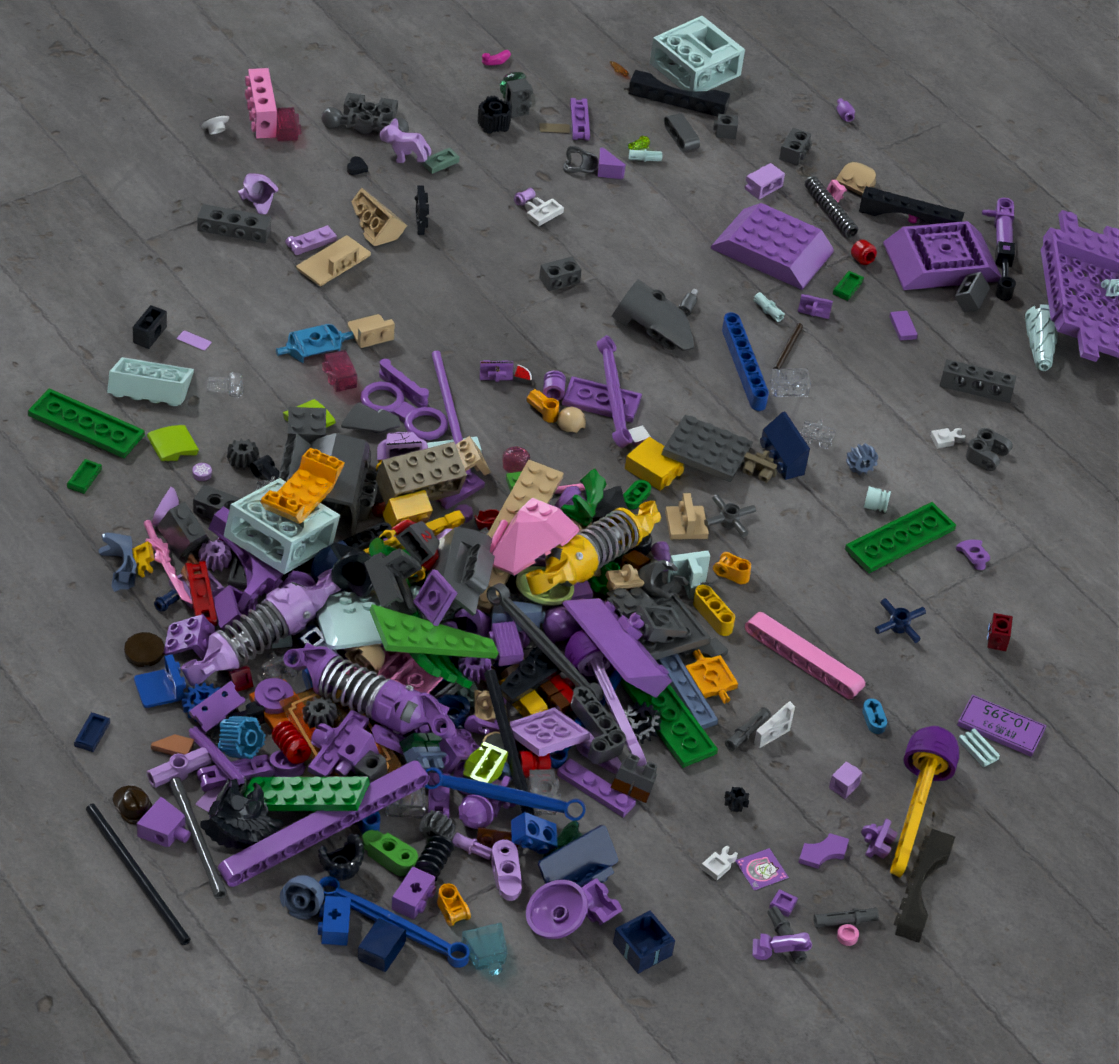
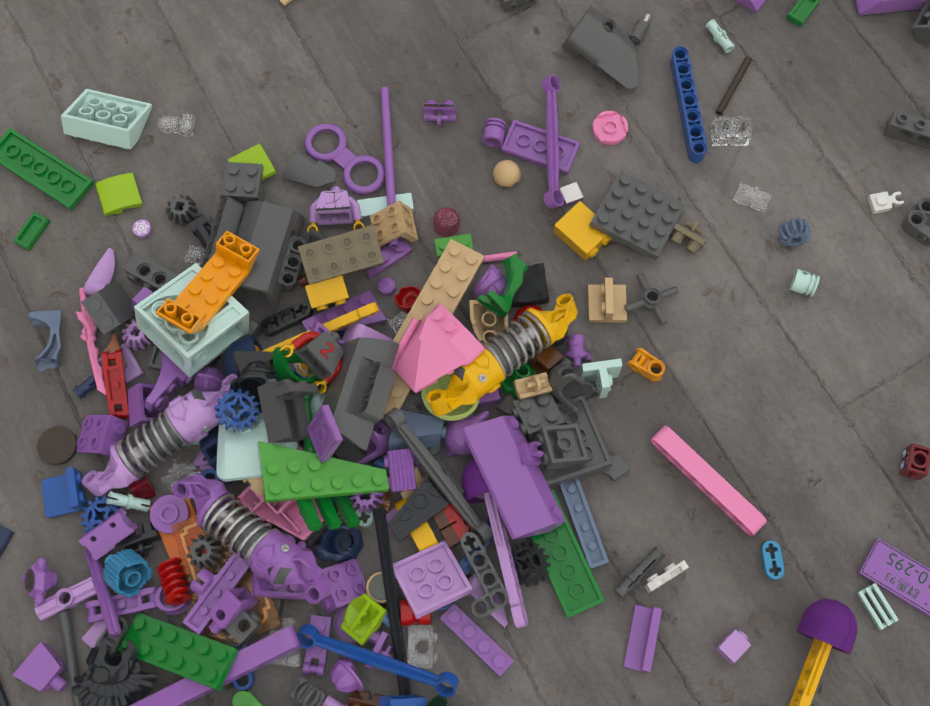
camera: 15 degrees right, 25 degrees up
(131, 803) = (20, 636): dark brown piece -> none
(143, 556) = (69, 334): yellow plate -> none
(148, 749) = (39, 580): none -> medium lavender rock
(149, 326) = (112, 56): black brick -> none
(173, 745) = (70, 567): nougat tile -> none
(194, 340) = (157, 68): lavender sticker -> none
(220, 680) = (128, 501): none -> light aqua pin
(301, 344) = (283, 73): dark azure plate -> none
(340, 370) = (287, 111): clear pink brick -> none
(341, 591) = (245, 411): none -> blue gear
(372, 330) = (324, 60): tan bracket -> none
(410, 389) = (351, 132): medium lavender plate -> none
(423, 748) = (296, 605): hips -> none
(474, 724) = (362, 560): medium lavender piece -> none
(483, 706) = (370, 539): tan hips -> none
(523, 375) = (466, 116): tile -> none
(546, 406) = (481, 155): light orange piece -> none
(637, 494) = (560, 270): green plate -> none
(643, 778) = (513, 641): dark grey hips -> none
(669, 383) = (610, 128): none -> bright pink tile
(712, 676) = (609, 504): light orange plate -> none
(714, 610) = (621, 410): yellow beam -> none
(736, 799) = (622, 664): black gear -> none
(759, 779) = (642, 638): none -> medium lavender panel
(785, 446) = (716, 216): dark blue slope -> none
(815, 306) = (767, 36): medium lavender hips -> none
(900, 537) = (823, 330): green plate -> none
(900, 620) = (807, 444): dark blue bar -> none
(903, 325) = (854, 59): medium lavender tile -> none
(978, 559) = (903, 361): medium lavender piece -> none

